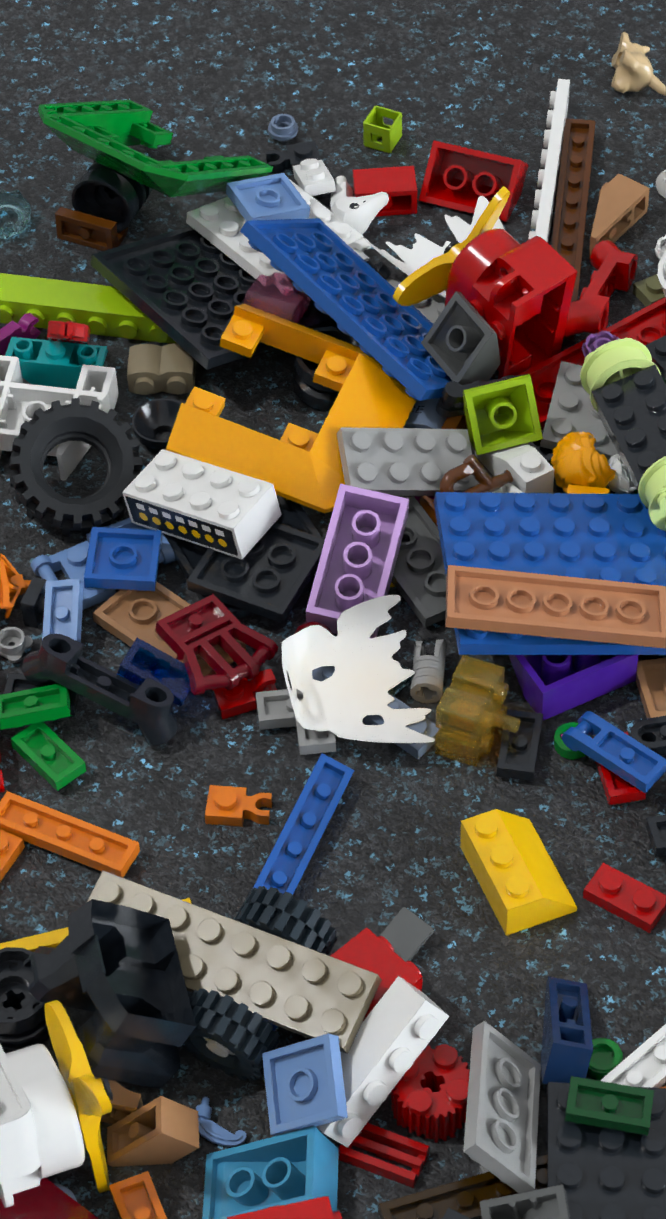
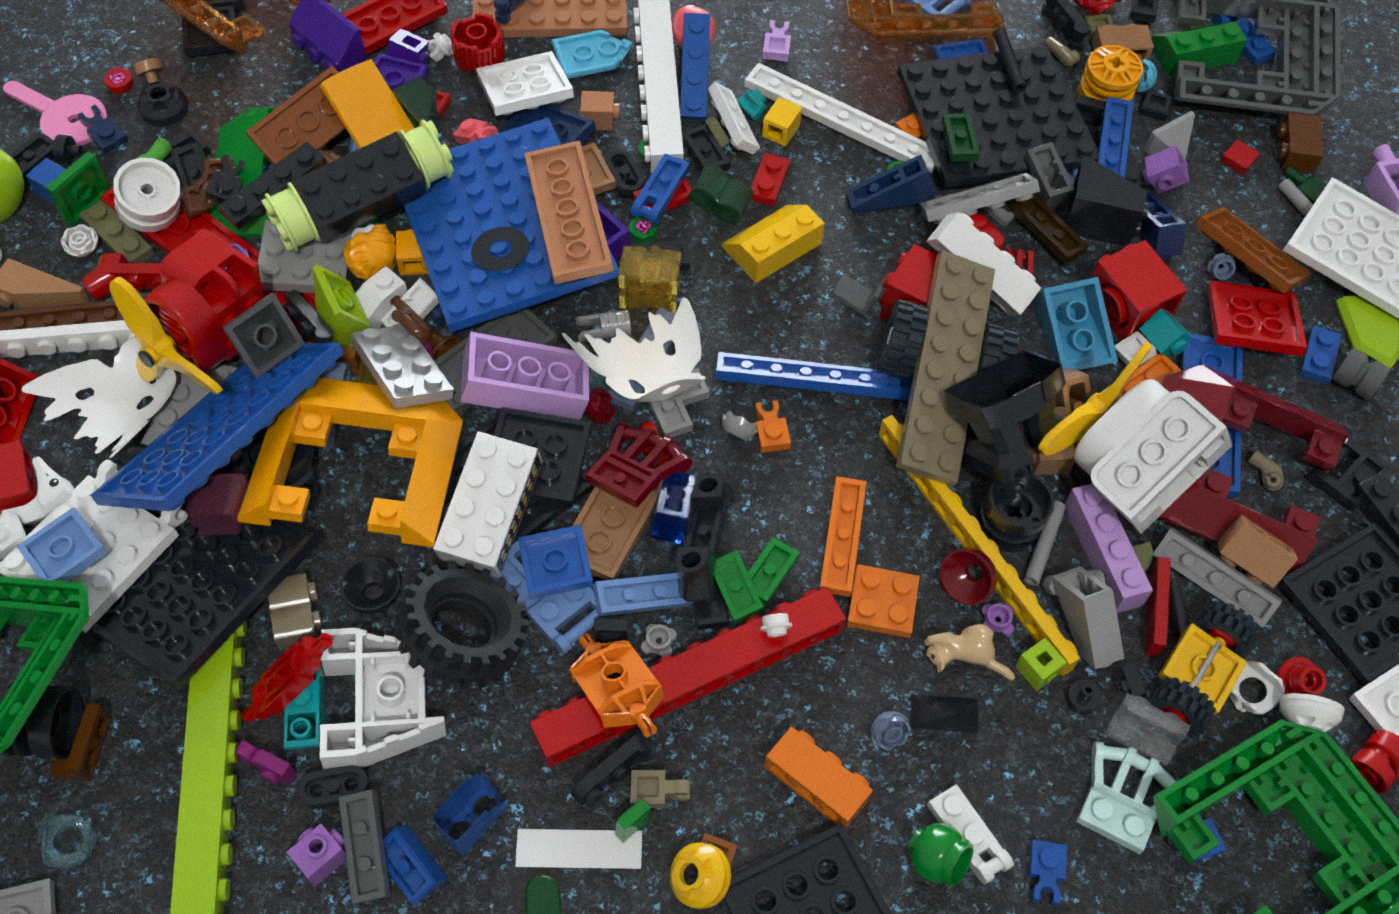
camera: 110 degrees left, 10 degrees up
(244, 766) = (738, 426): none -> light grey plate
(304, 1085) = (1021, 296): medium blue plate -> none
(507, 538) = (482, 257): none -> black piece
(598, 821) = (720, 194): none -> clear green brick

